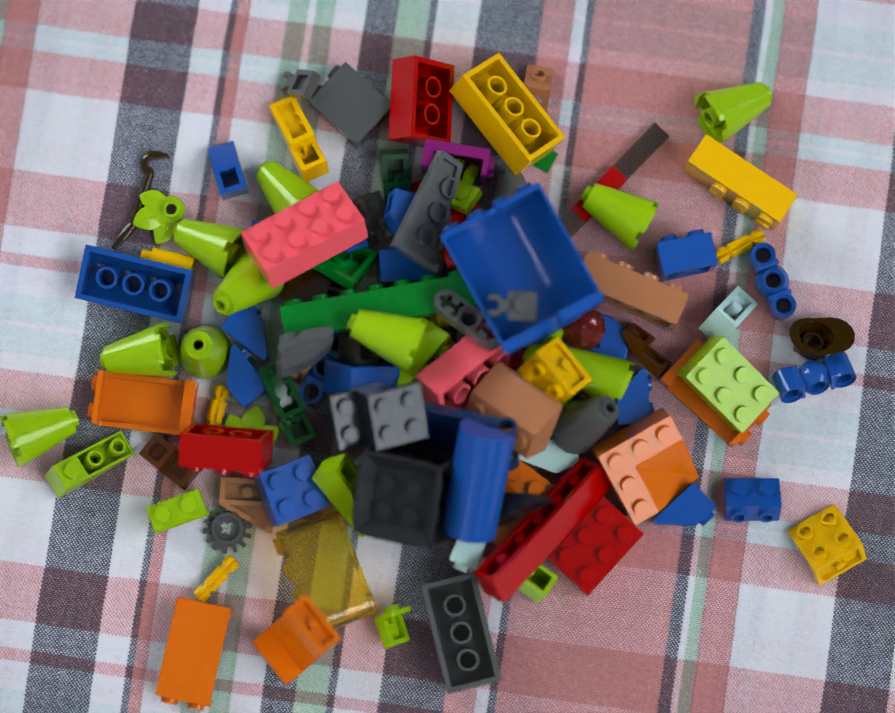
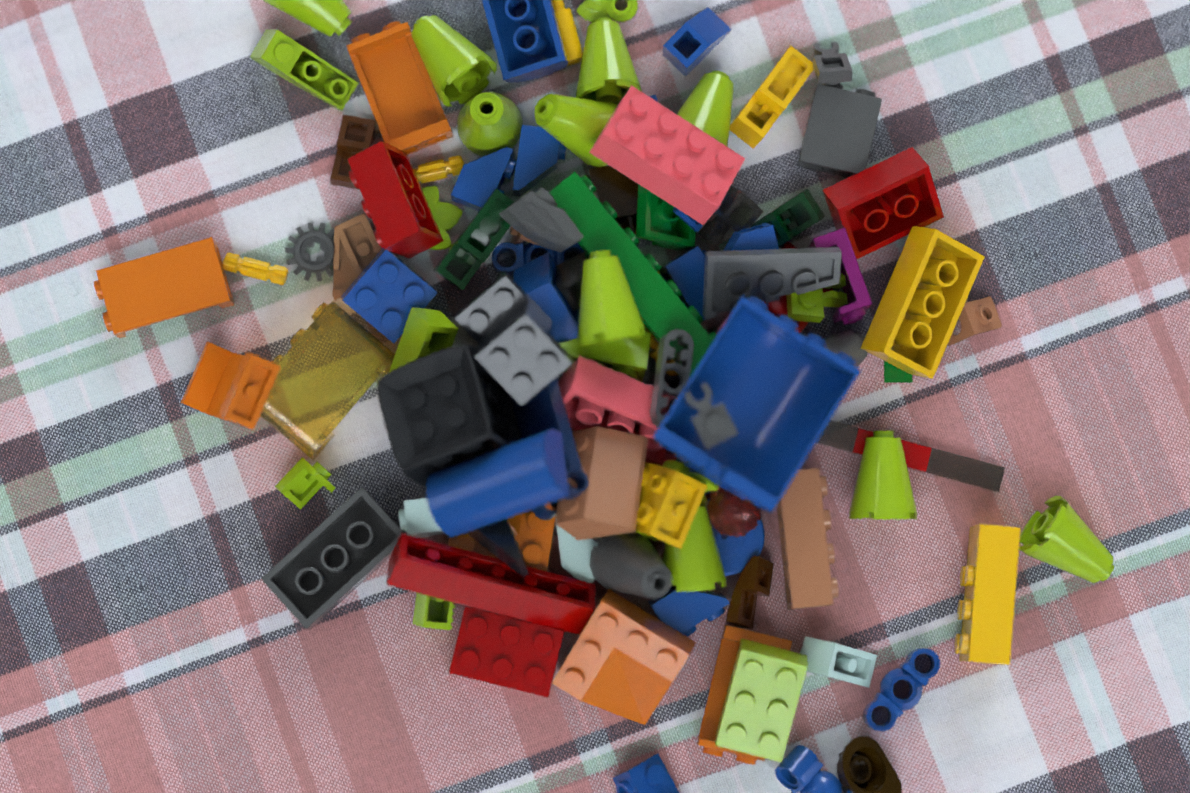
camera: 60 degrees right, 0 degrees up
(177, 510) = (304, 187): lime brick -> none
(685, 255) = (875, 578): blue brick -> none
(687, 509) = (601, 730): blue slope -> none
(739, 246) = (920, 633): yellow axle -> none

